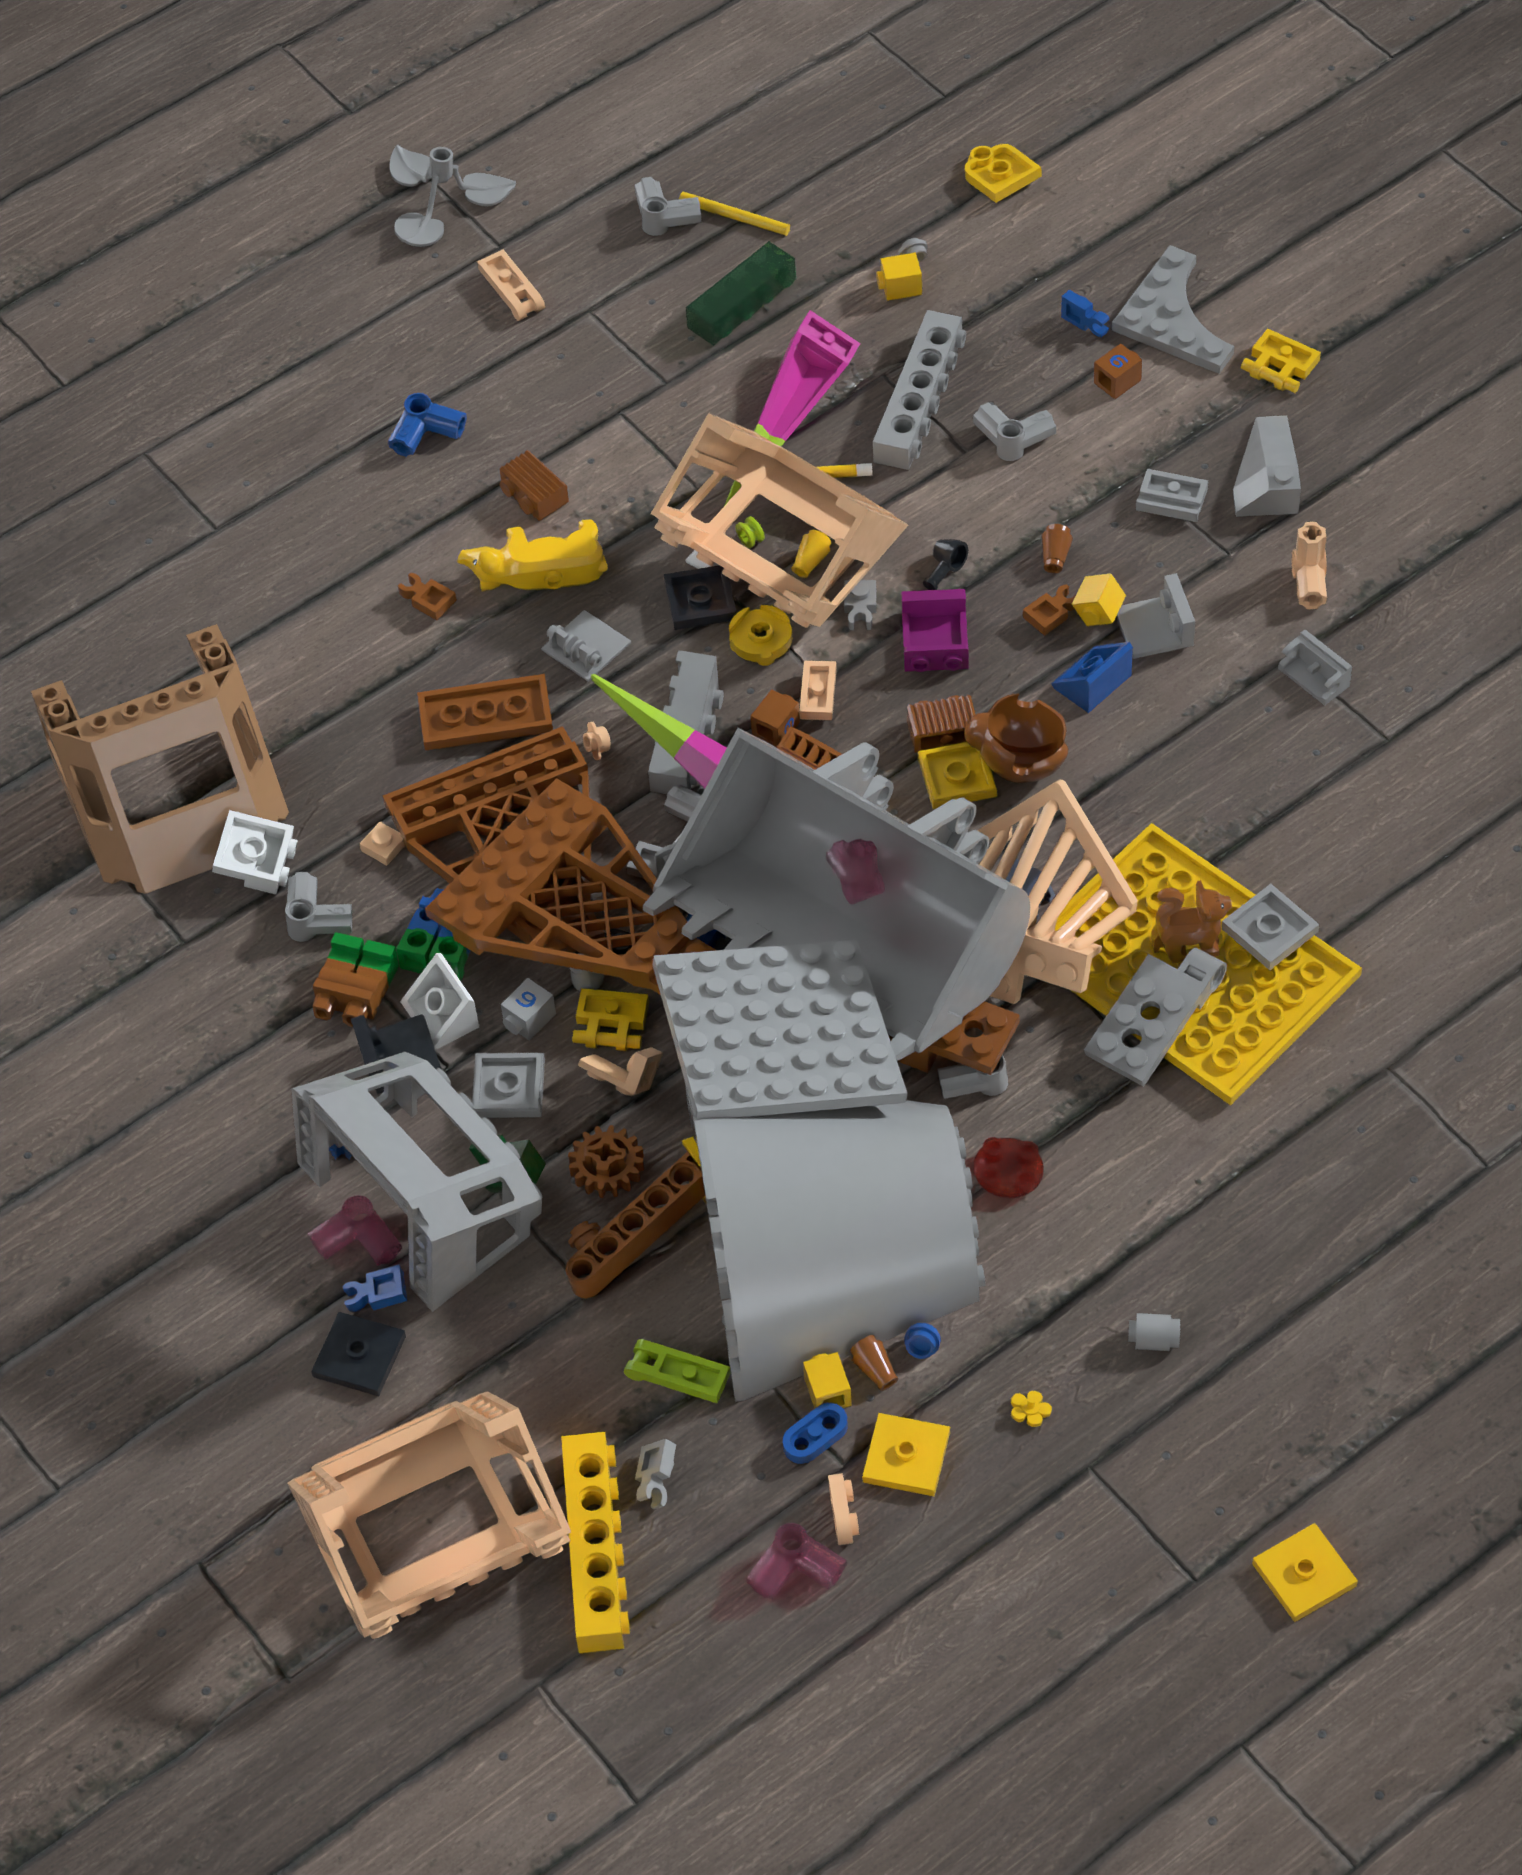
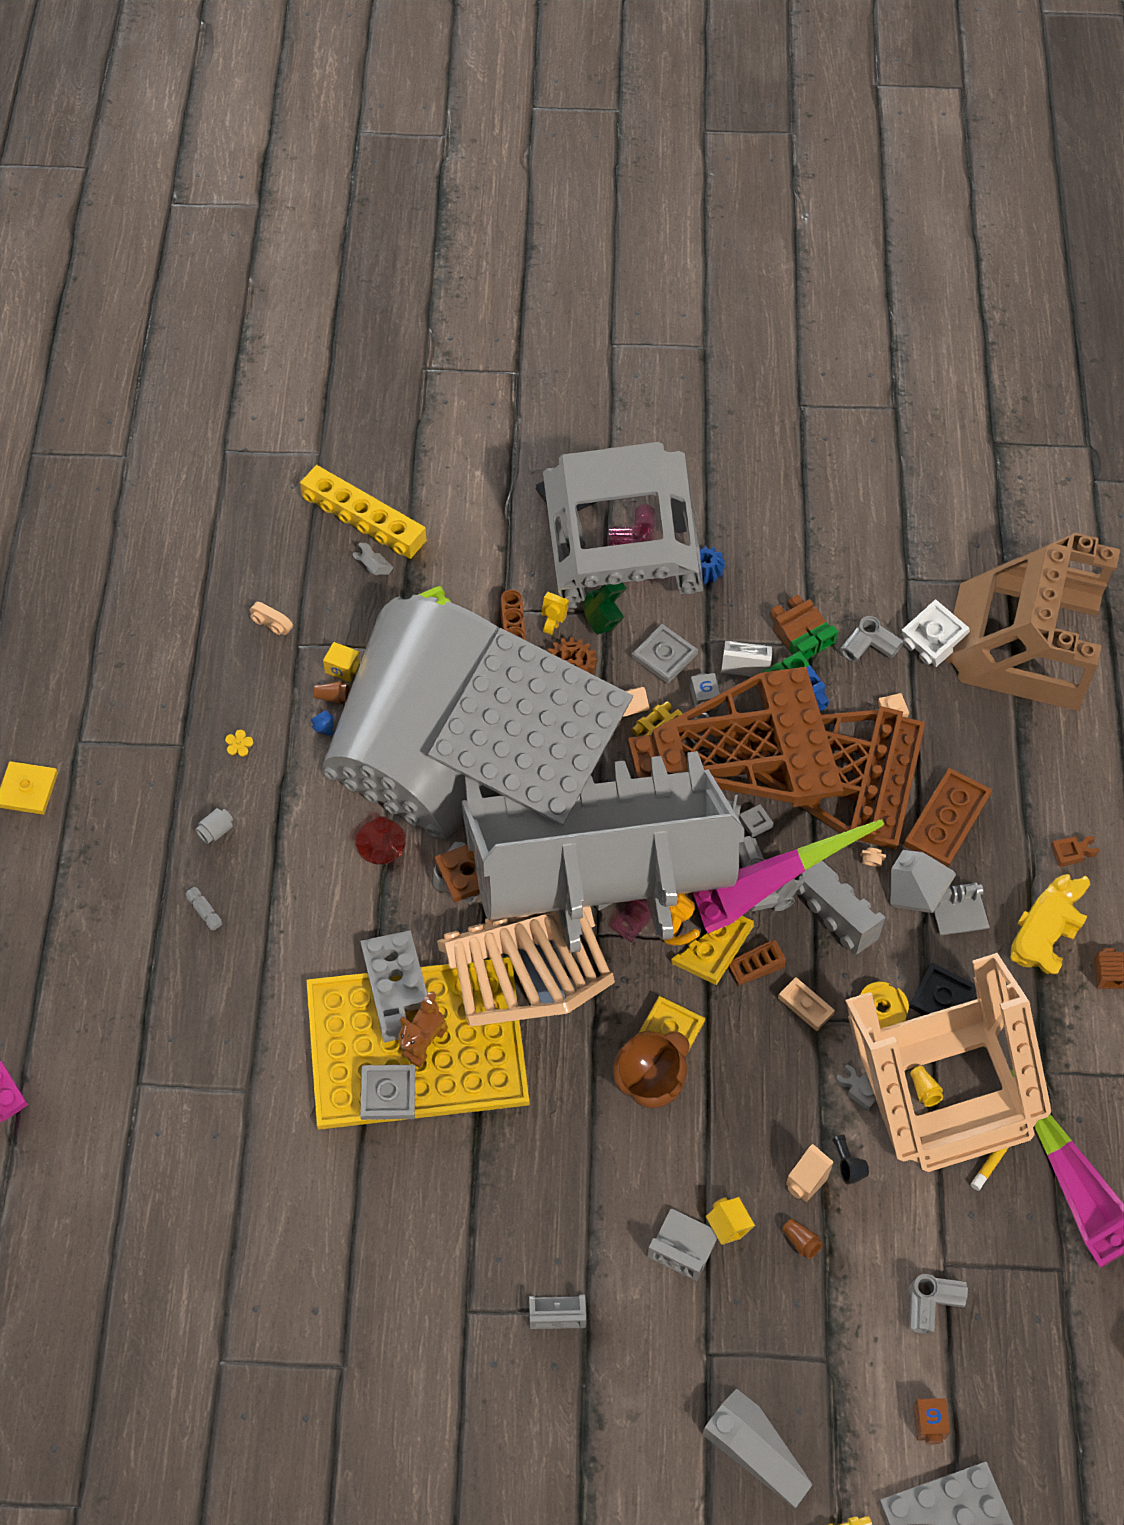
camera: 125 degrees right, 5 degrees up
(381, 1289) = (594, 521): blue plate -> none
(405, 1036) = (735, 613): black bracket -> none
(406, 1461) = (420, 466): light nougat piece -> none
(560, 1210) = (555, 610): none -> yellow plate
(582, 1234) = (535, 622): dark orange plate -> none
(603, 658) = (918, 881): none -> light grey slope
(750, 532) = (975, 1064): lime bush -> none
(774, 717) = (803, 961): dark orange brick -> none
(779, 1563) = (271, 583): clear pink piece -> none
(813, 1434) = (321, 641): blue plate -> none
(906, 1454) = (272, 671): yellow plate -> none
(918, 390) = (987, 1208): light grey brick -> none
(935, 630) = (792, 1107): magenta panel -> none
(939, 722) = (715, 1050): dark orange brick -> none
(994, 571) = (809, 1174): none -> light nougat slope
(1049, 612) = (752, 1189): dark orange plate -> none
(1080, 313) = (1016, 1446): blue plate -> none
(1096, 675) = (676, 1170): blue slope -> none
(1172, 495) = (785, 1355): light grey plate -> none
(1253, 1265) = (203, 908): none -> light grey axle
(1310, 565) = (640, 1382): light nougat piece -> none

